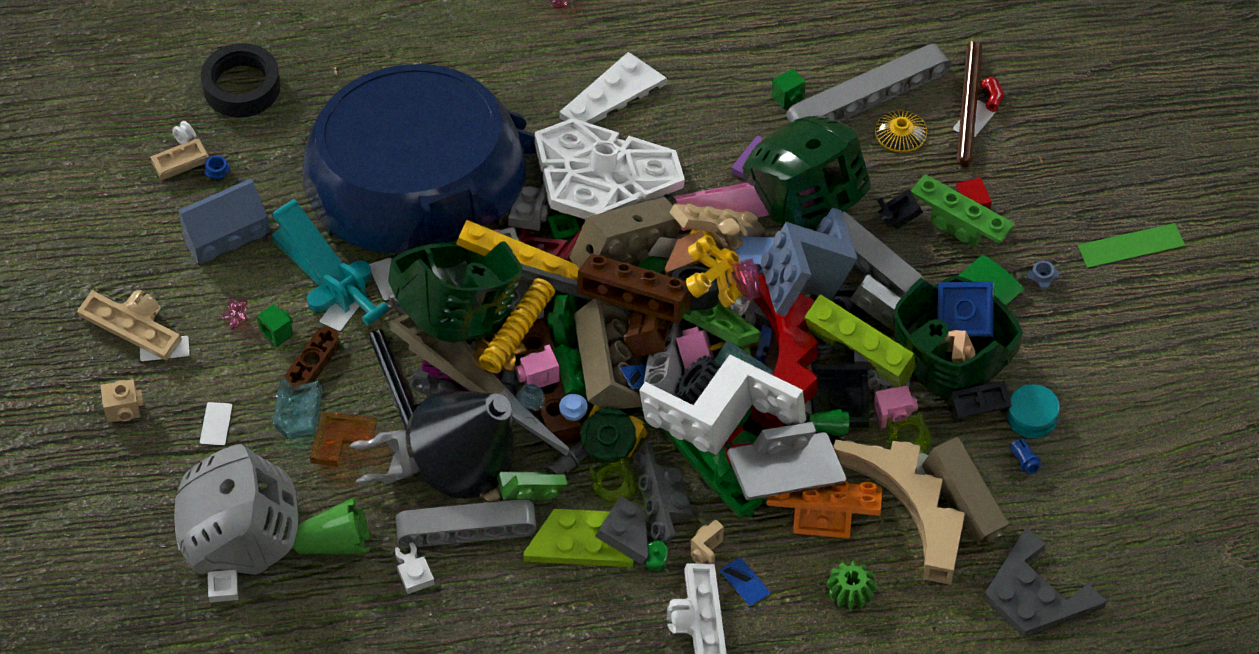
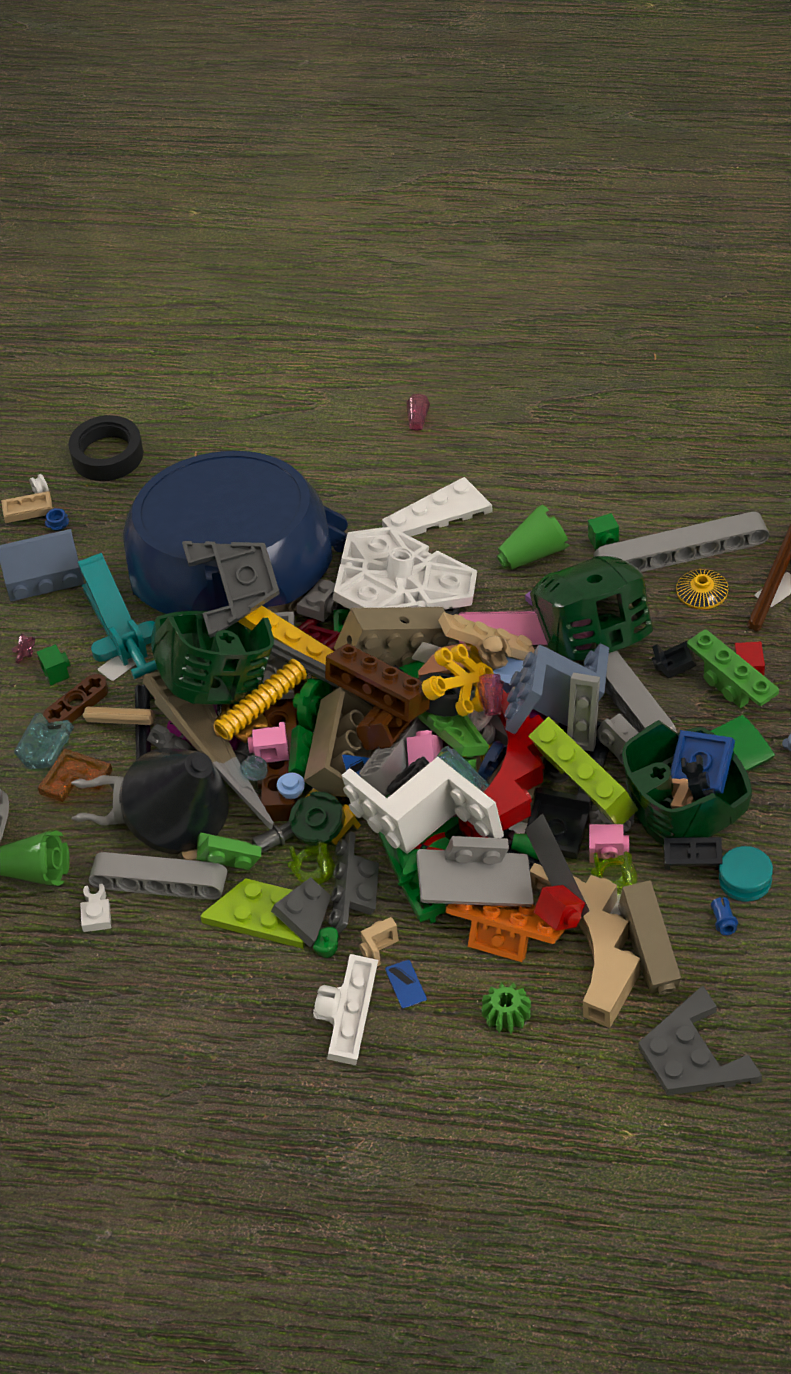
camera: 20 degrees right, 5 degrees down
(365, 366) = (119, 715): none -> tan axle
(466, 201) = (245, 577): none -> dark grey wing
(723, 108) = (533, 540): none -> bright green cone
(841, 275) = (583, 710): none -> light grey plate
(862, 442) = (552, 857): none -> dark grey sticker
(876, 479) = (559, 907): none -> red brick
(976, 329) = (697, 779): none -> black plate

